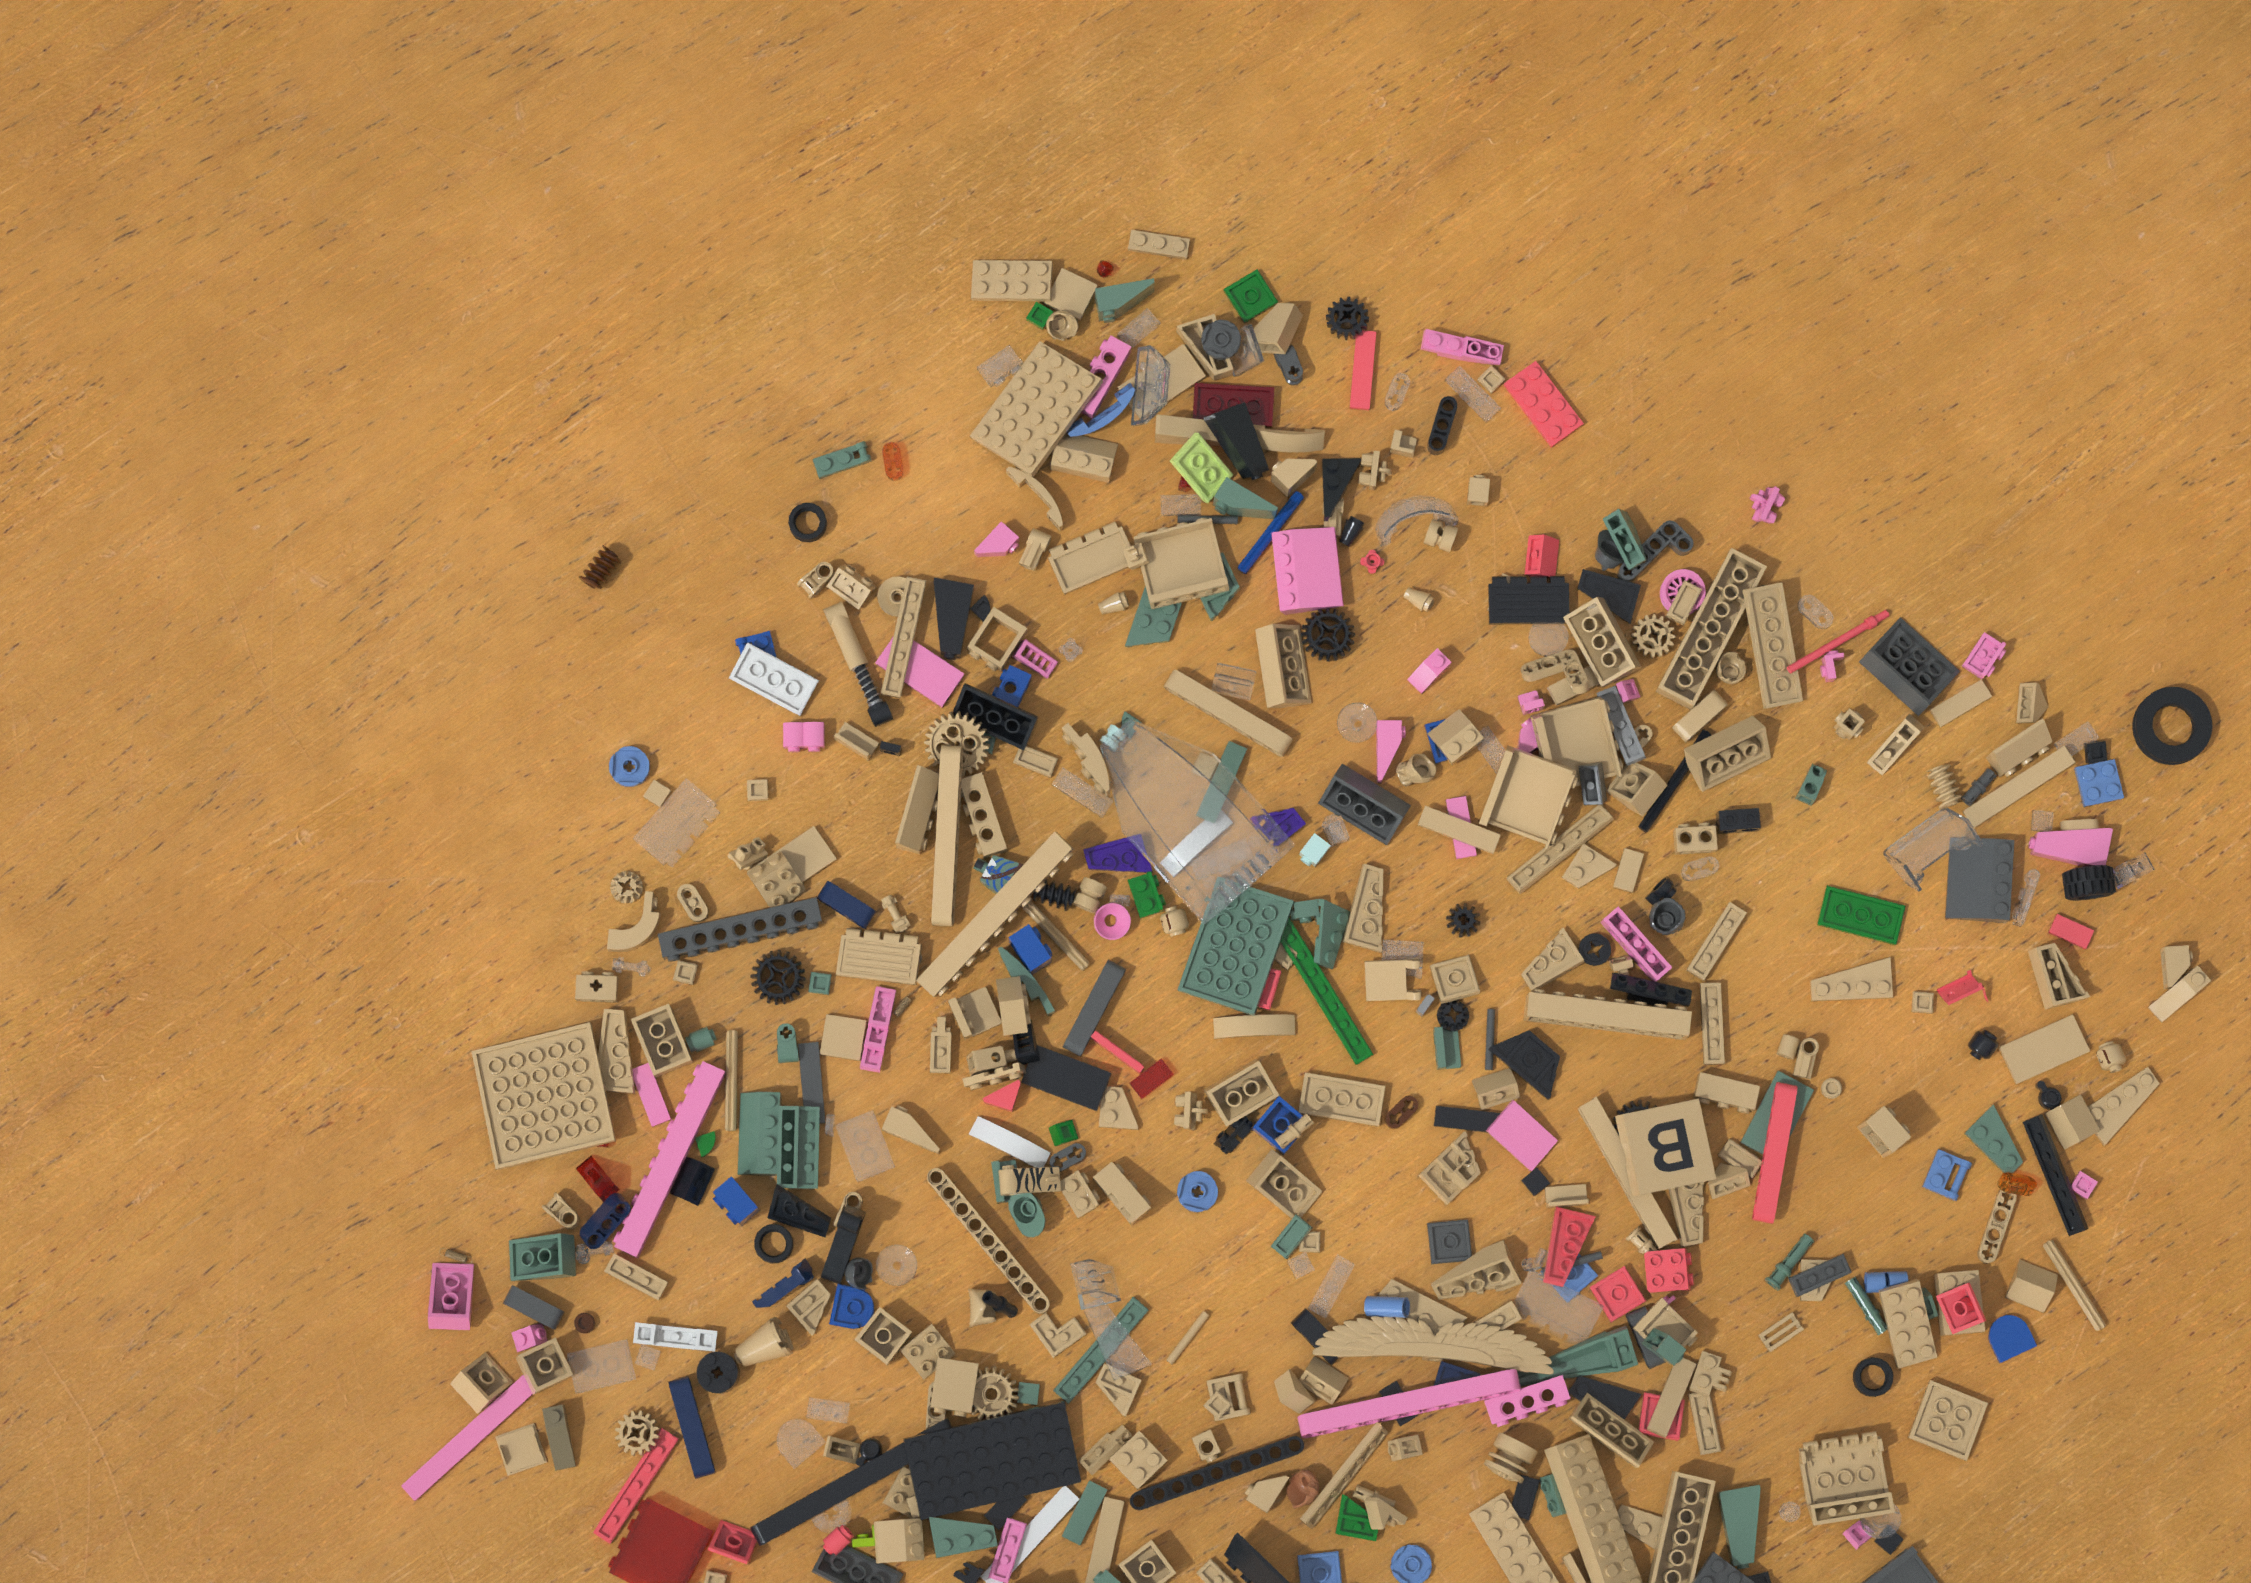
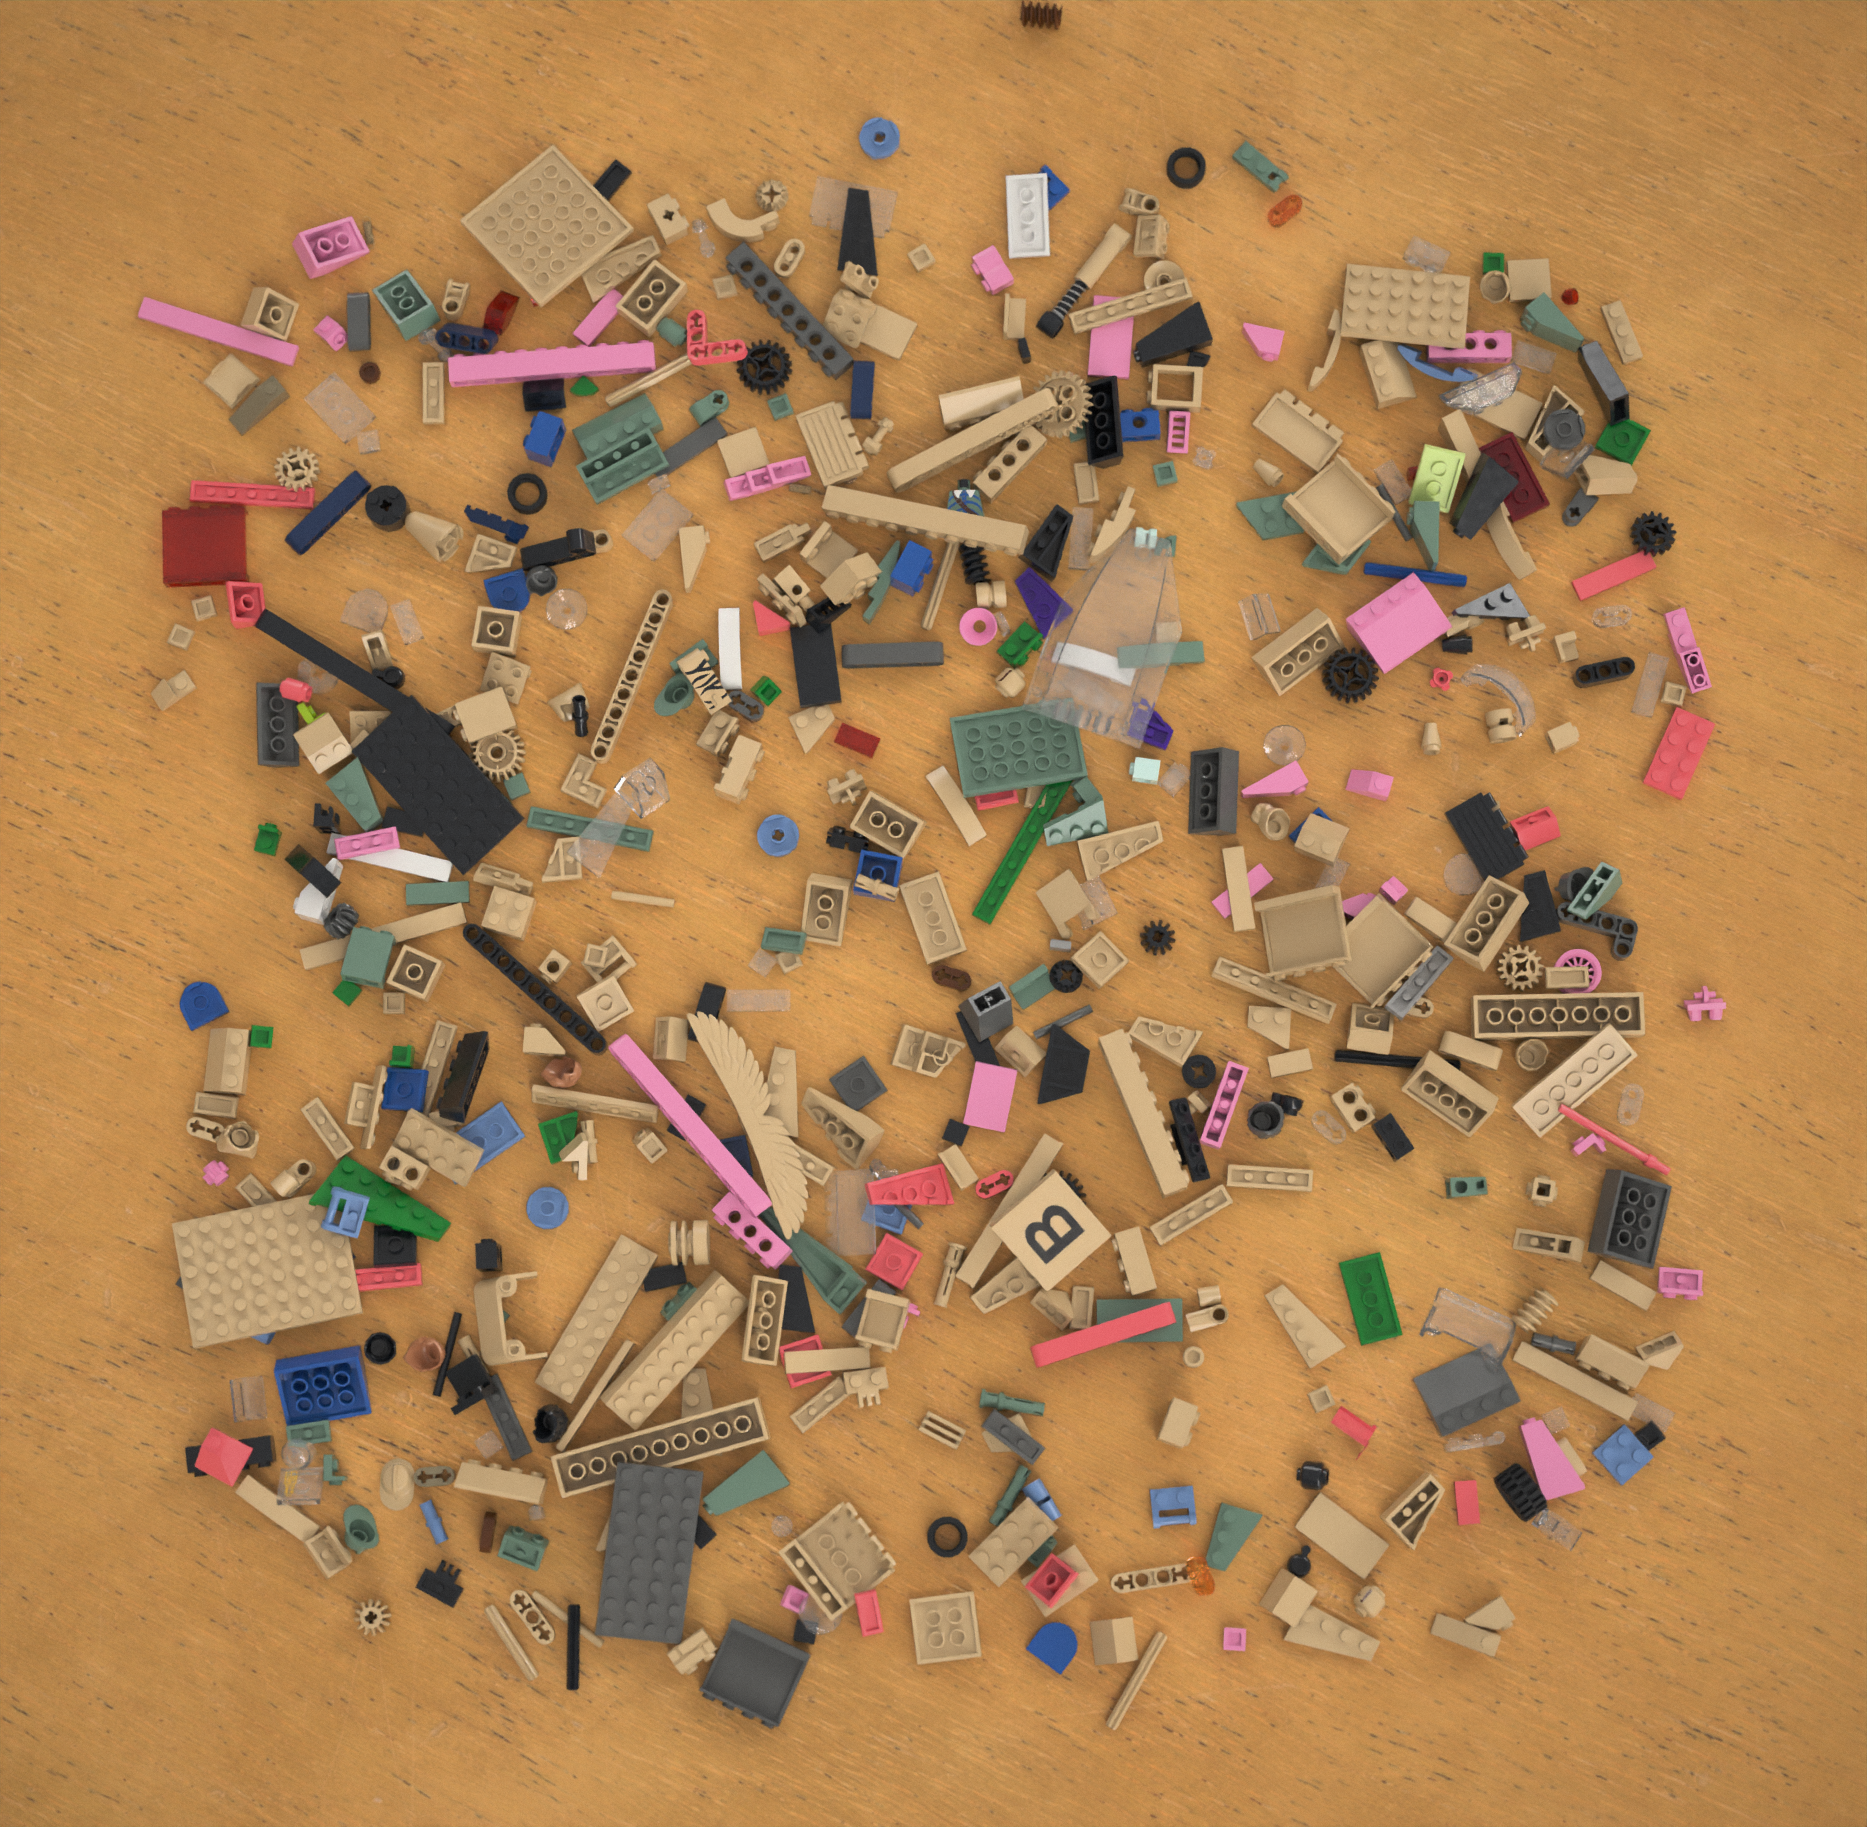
camera: 70 degrees right, 0 degrees up
(532, 1017) = (612, 179): none -> black tile
(544, 1366) = (311, 357): tan brick -> none
(657, 793) = (869, 175): tan tile -> none
(675, 1337) = (398, 454): white slope -> none
(706, 832) = (857, 233): none -> black wing
(730, 1021) = (702, 346): none -> coral beam
(797, 1213) = (564, 497): black wing -> none
(1011, 280) = (1510, 222): tan plate -> none
(1036, 545) = (1284, 376): tan piece -> none
(1066, 690) = (1165, 473): none -> sand green plate
(1072, 821) = (1048, 542): none -> black wedge
(1117, 1052) = (863, 696): coral tile -> none
(1136, 556) = (1322, 466): tan tile -> none
(1196, 283) = (1604, 383): none -> slope
(1228, 713) = (1227, 626): tan beam -> none
(1262, 1419) = (605, 1003): none -> tan plate
(1292, 473) = (1479, 562): tan slope -> none
(1292, 1392) = (643, 1017): tan slope -> none
(1387, 1306) = (766, 1058): medium blue pin -> none
(1448, 1096) = (988, 1011): none -> dark grey slope
(1531, 672) = (1450, 904): tan beam -> none
(1592, 1173) = (991, 1180): none -> coral beam
(1593, 784) = (1351, 987): dark grey slope -> none
(1628, 690) = (1456, 972): bright pink plate -> none
(1664, 1346) = (864, 1325): sand green slope -> none
(1668, 1270) = (941, 1296): coral bracket -> none
(1901, 1478) = (868, 1612): none -> coral tile
(2055, 1175) = (1229, 1608): black tile -> none
(2194, 708) = (1747, 1494): black tyre -> none

